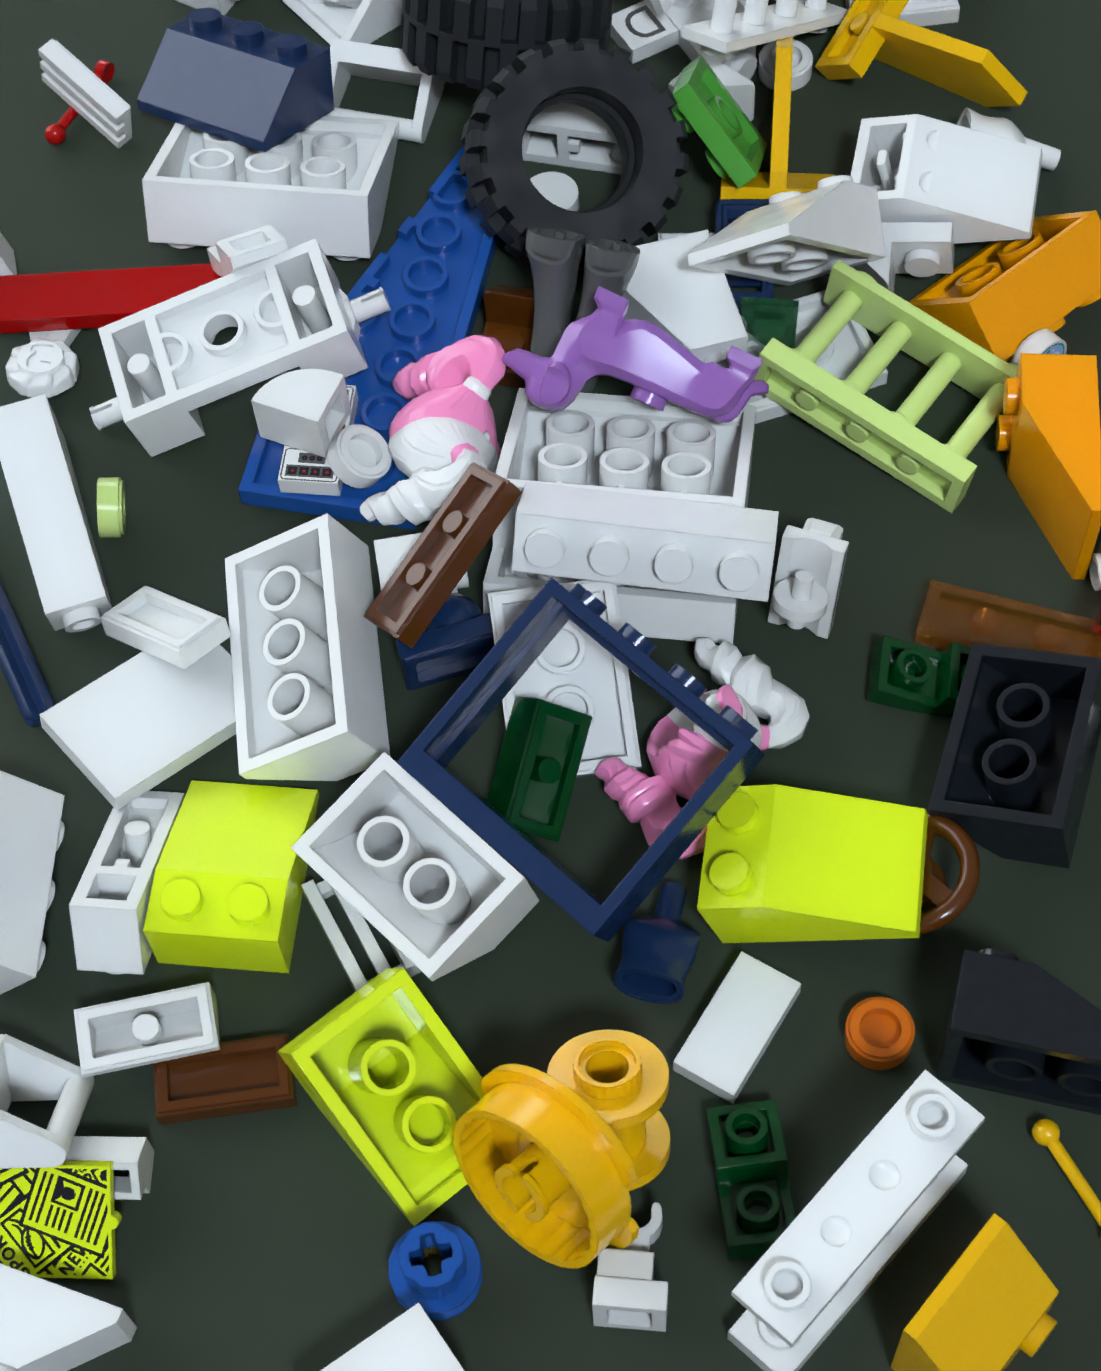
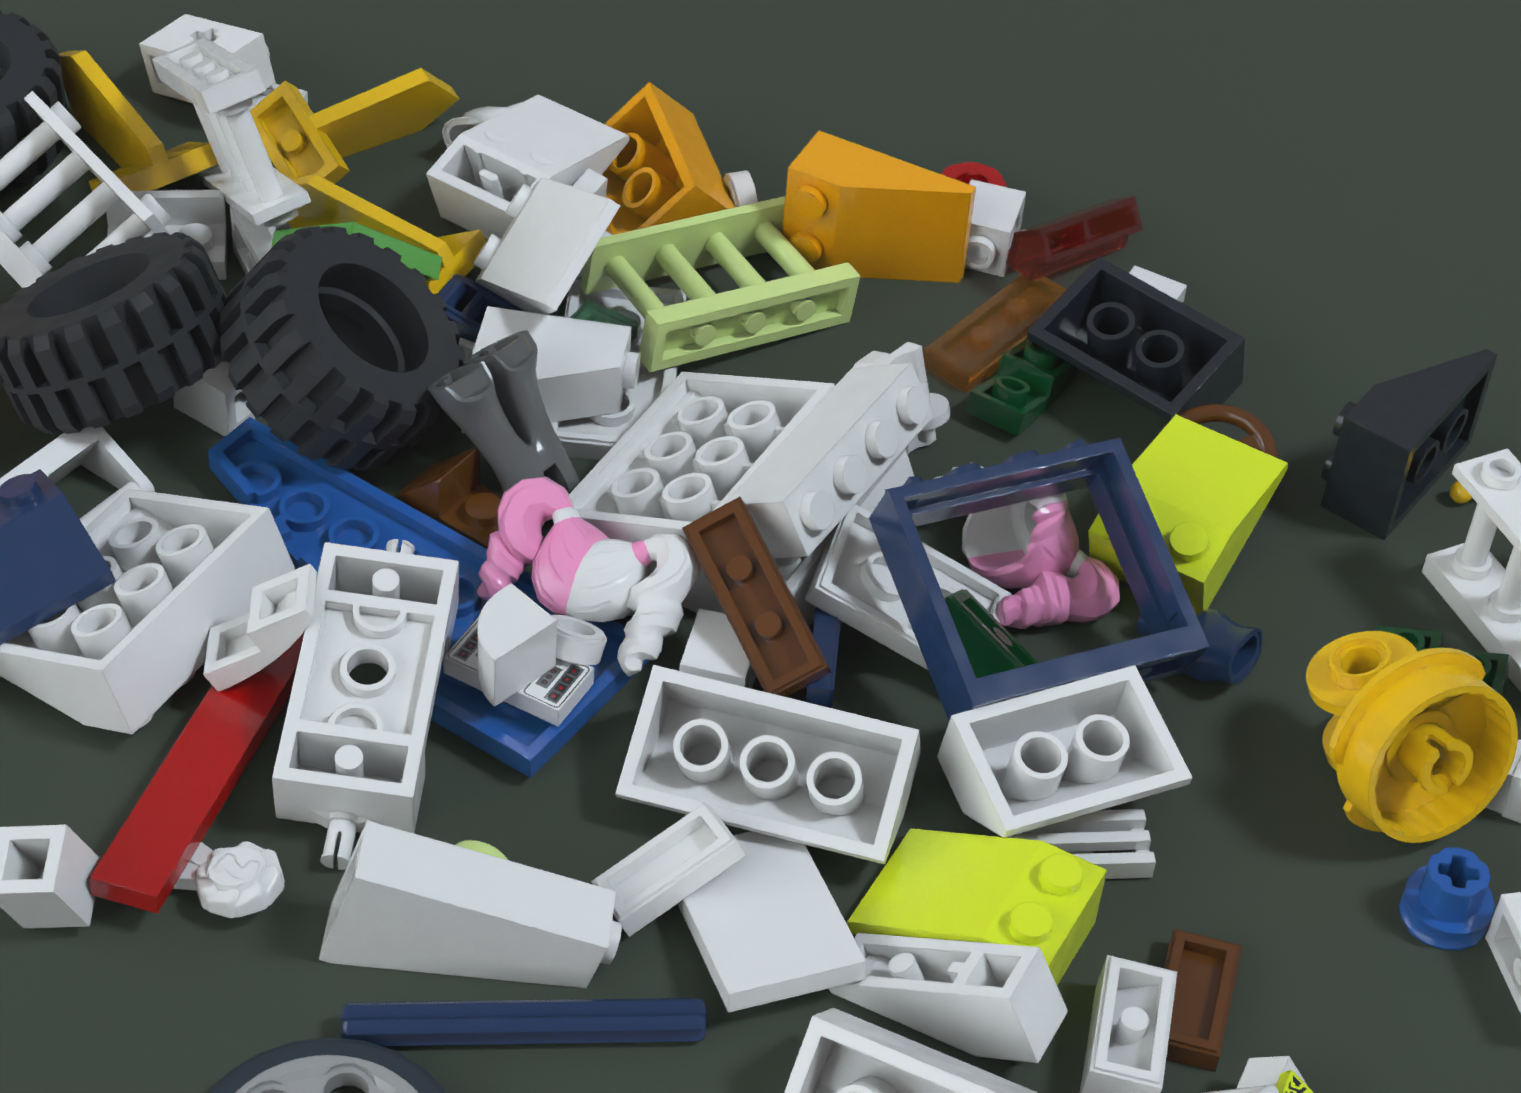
camera: 75 degrees left, 15 degrees down
(391, 1088) = (1264, 861): neon yellow slope -> none
(641, 357) = (616, 391): medium lavender animal -> none
(736, 1027) = (1289, 621): white tile -> none
(879, 1033) = (1335, 550): orange tile -> none

